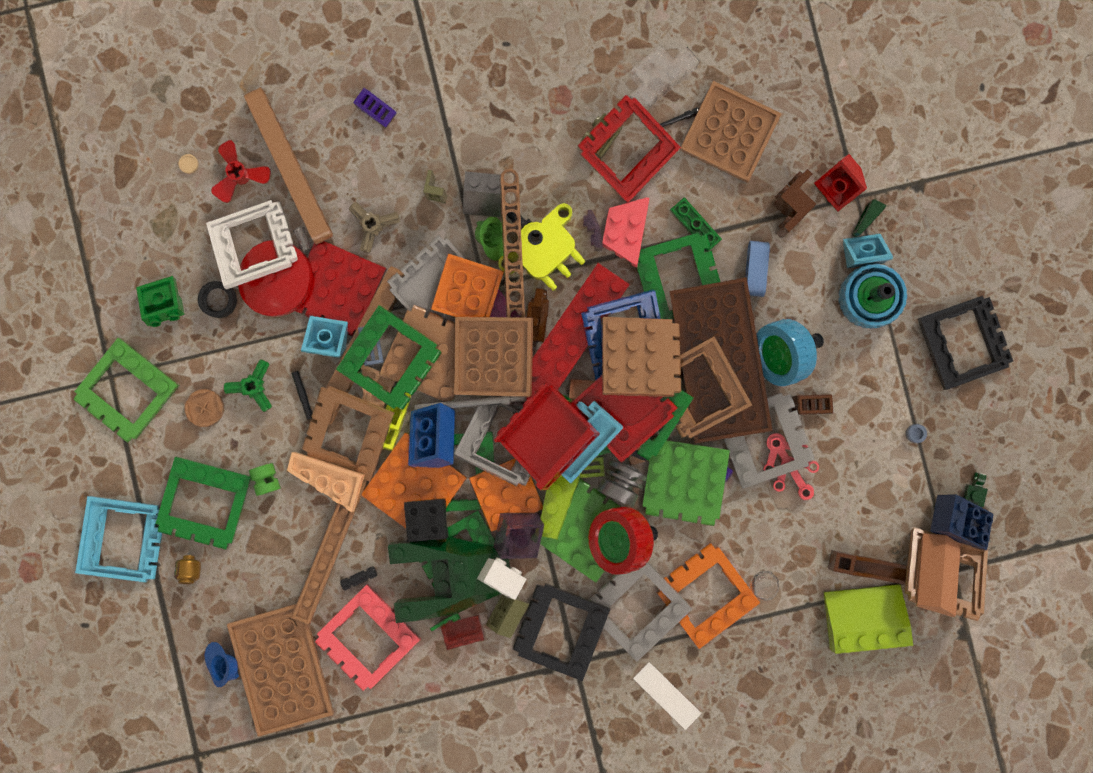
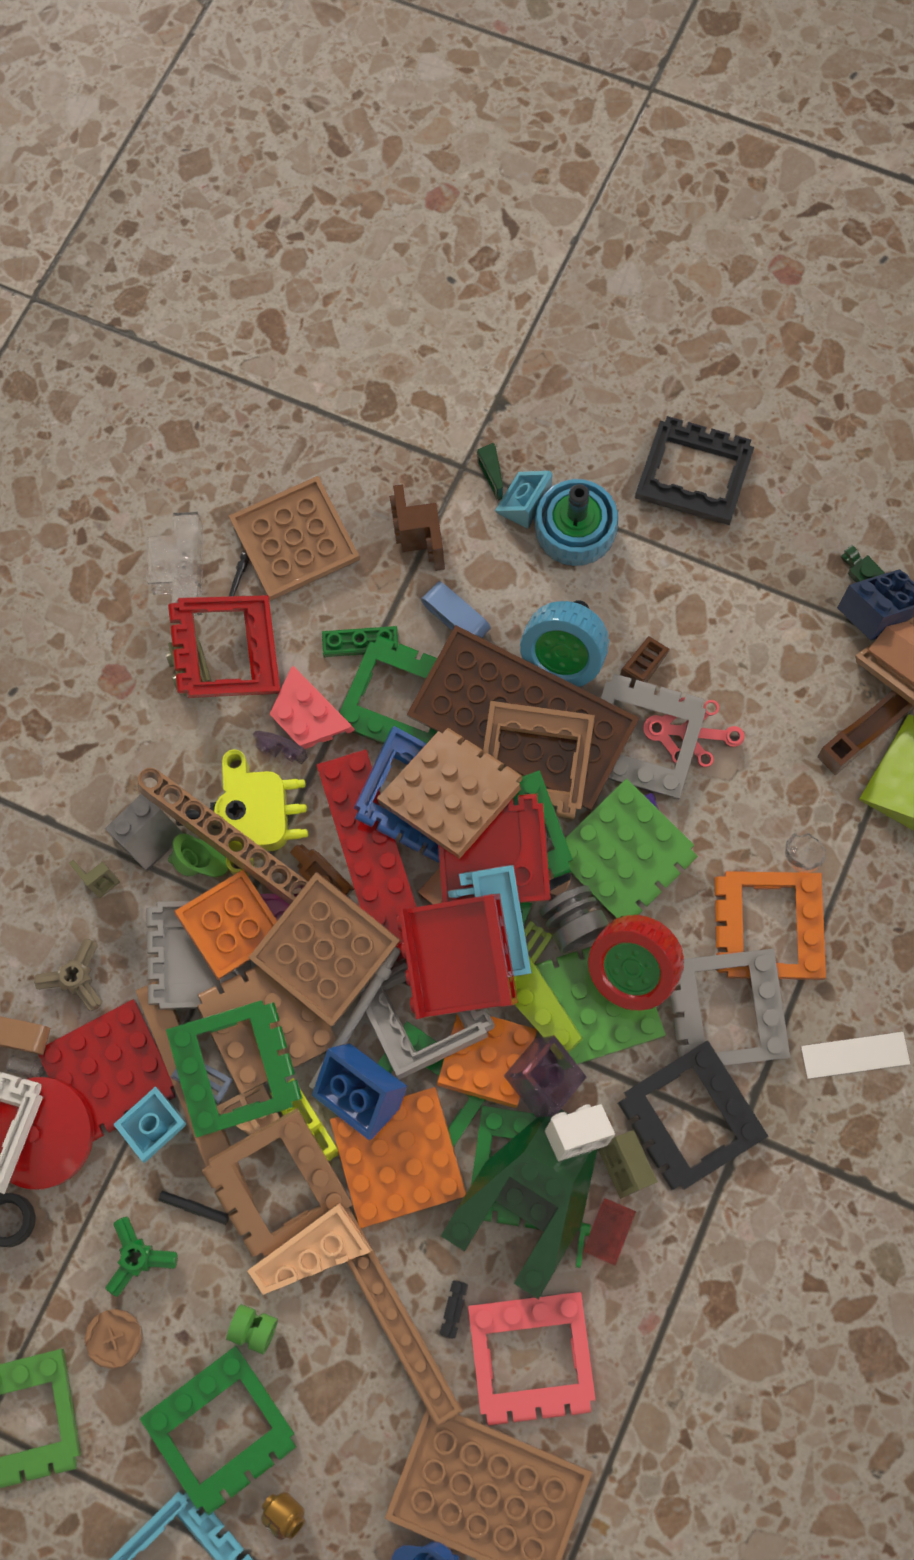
camera: 45 degrees left, 15 degrees down
(426, 520) = (446, 1168): black brick -> none
(842, 183) = (436, 469): red slope -> none
(916, 433) = (755, 583): sand blue tile -> none

